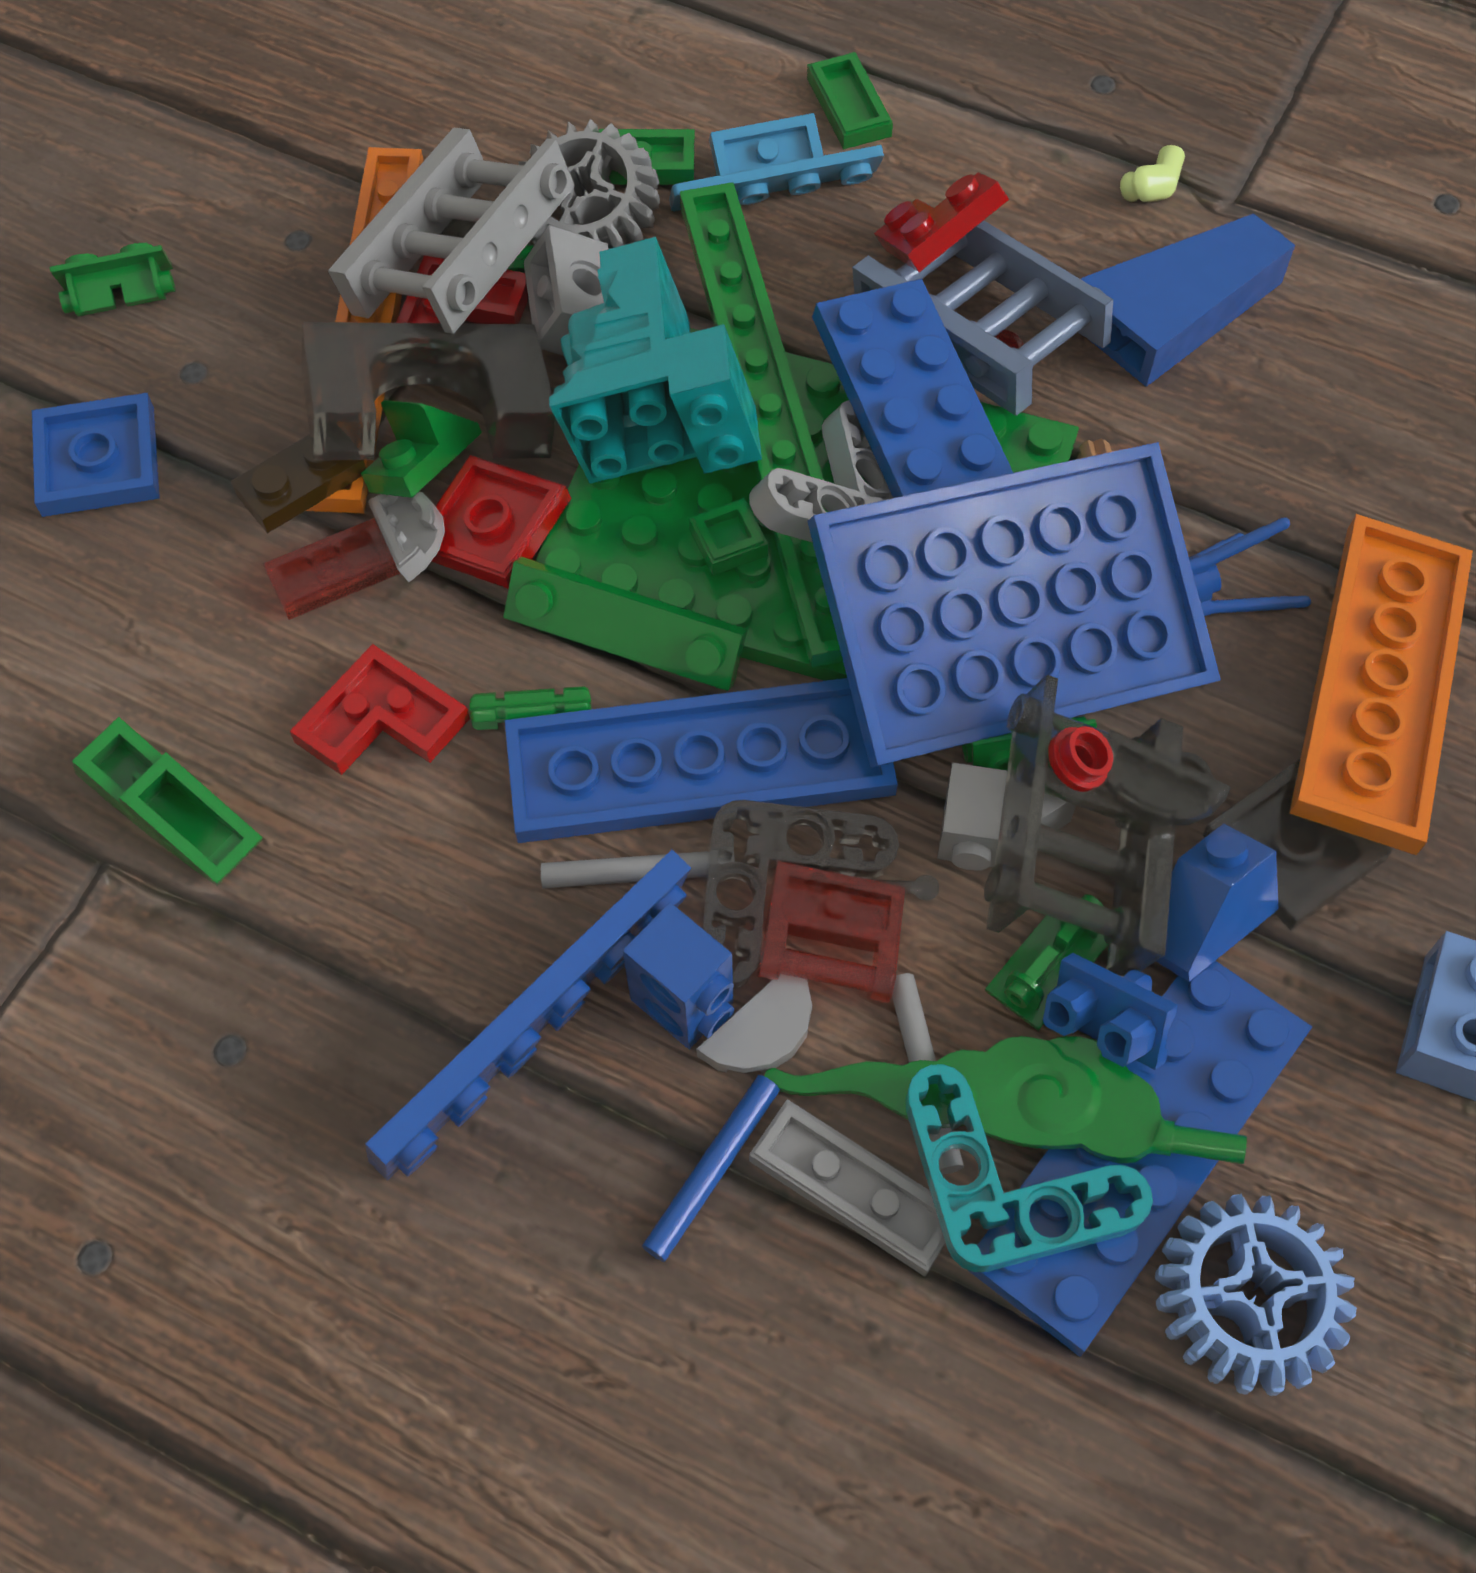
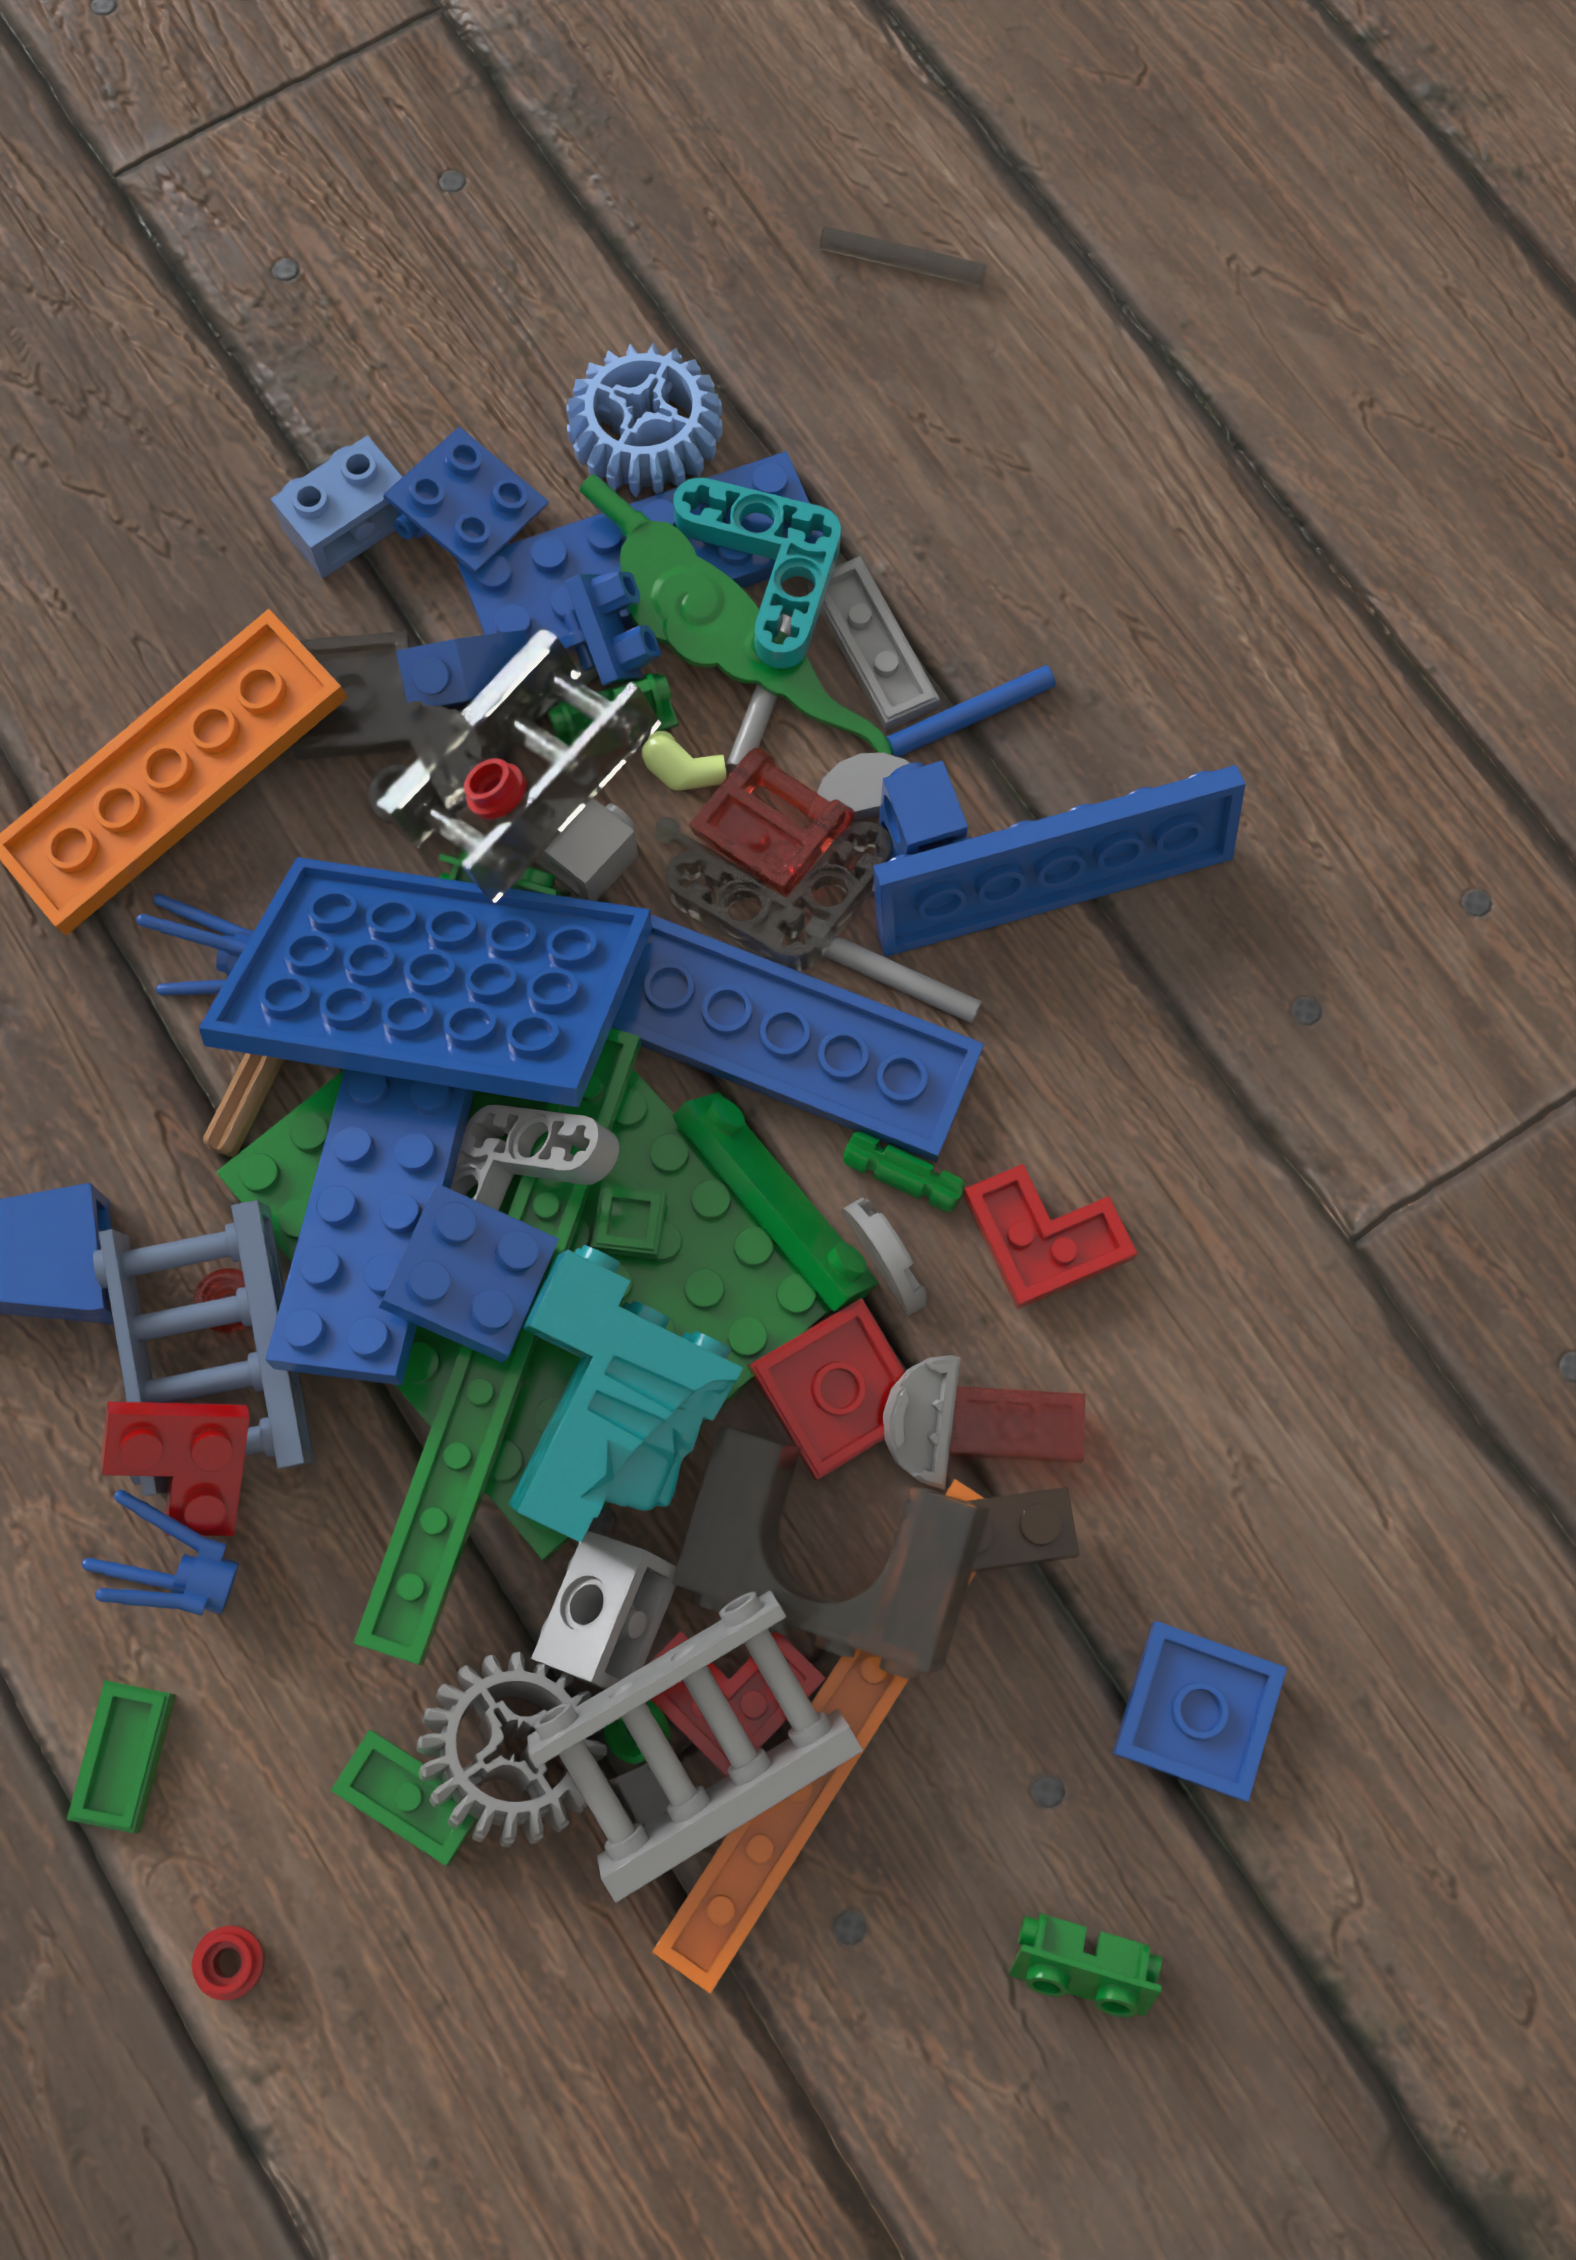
camera: 150 degrees left, 10 degrees up
(165, 801) = (1279, 1253): green slope -> none
(424, 447) = (862, 1505): green slope -> none
(514, 636) = (887, 1254): none -> light grey tile
(696, 37) = (206, 1962): none -> red plate
(779, 158) = (279, 1692): dark azure bracket -> none
(814, 396) = (469, 1273): none -> blue plate
(872, 187) = (199, 1581): none -> blue plant
(954, 943) = (677, 768): none -> yellowish green arm
(1352, 1079) = (463, 500): none -> blue hinge

